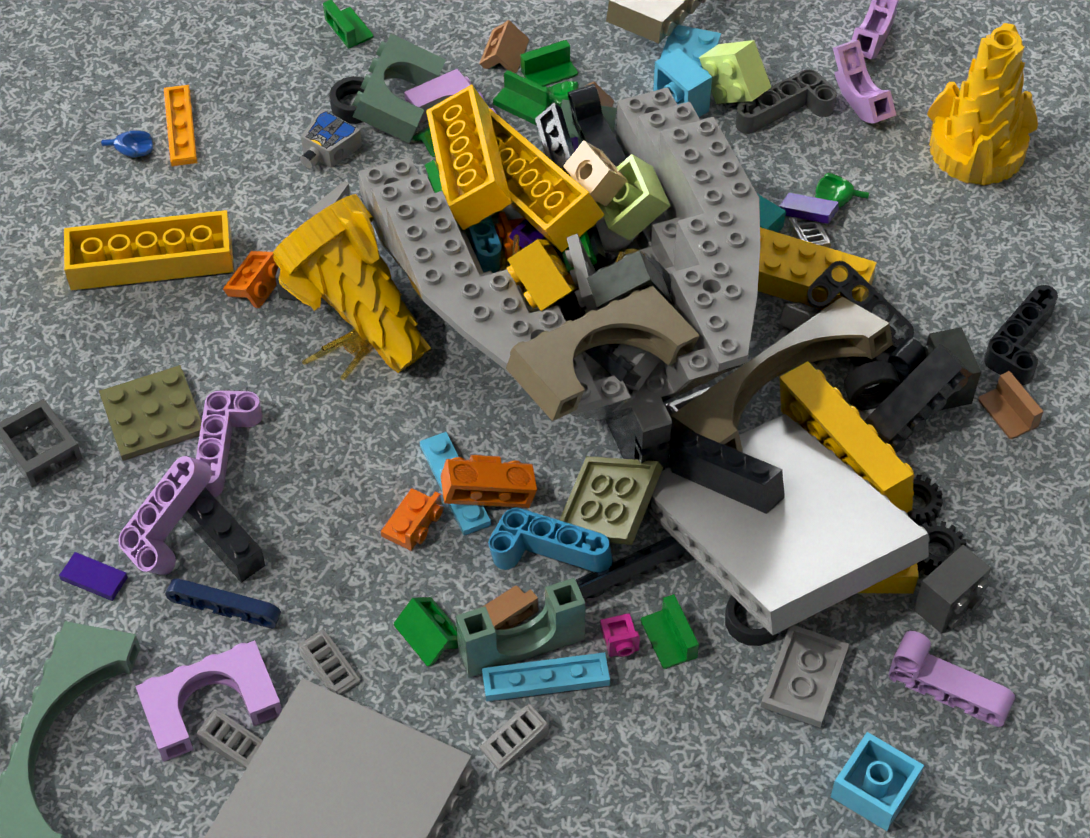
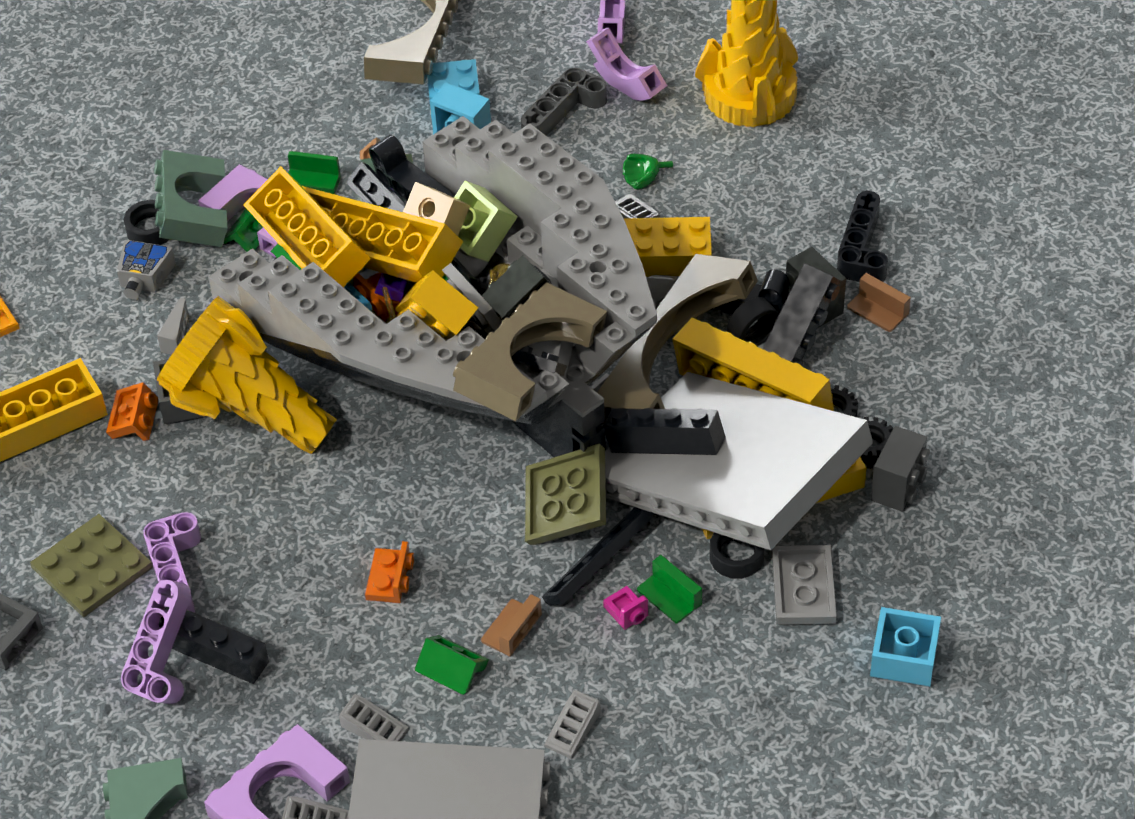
camera: 20 degrees left, 5 degrees down
(93, 576) = (108, 726): dark purple tile -> none
(223, 603) = (278, 703): dark blue beam -> none
(346, 24) = (105, 157): green panel -> none
(351, 342) = (256, 440): clear yellow plant -> none
(437, 450) = (411, 528): medium azure plate -> none
(488, 482) = (447, 517): orange piece -> none
(505, 47) = (272, 131): medium nougat panel -> none
(545, 676) = (576, 665): medium azure plate -> none
(548, 64) = (322, 135): green panel -> none
(549, 537) = (526, 546): dark azure beam -> none
(555, 627) = (514, 655): sand green arch -> none
(560, 91) = (349, 158): green piece -> none
(735, 72) = (508, 88): yellowish green brick -> none
(809, 208) = (630, 189): tile -> none
(845, 289) = (695, 246): black beam -> none
(949, 682) = (928, 547): lavender beam -> none

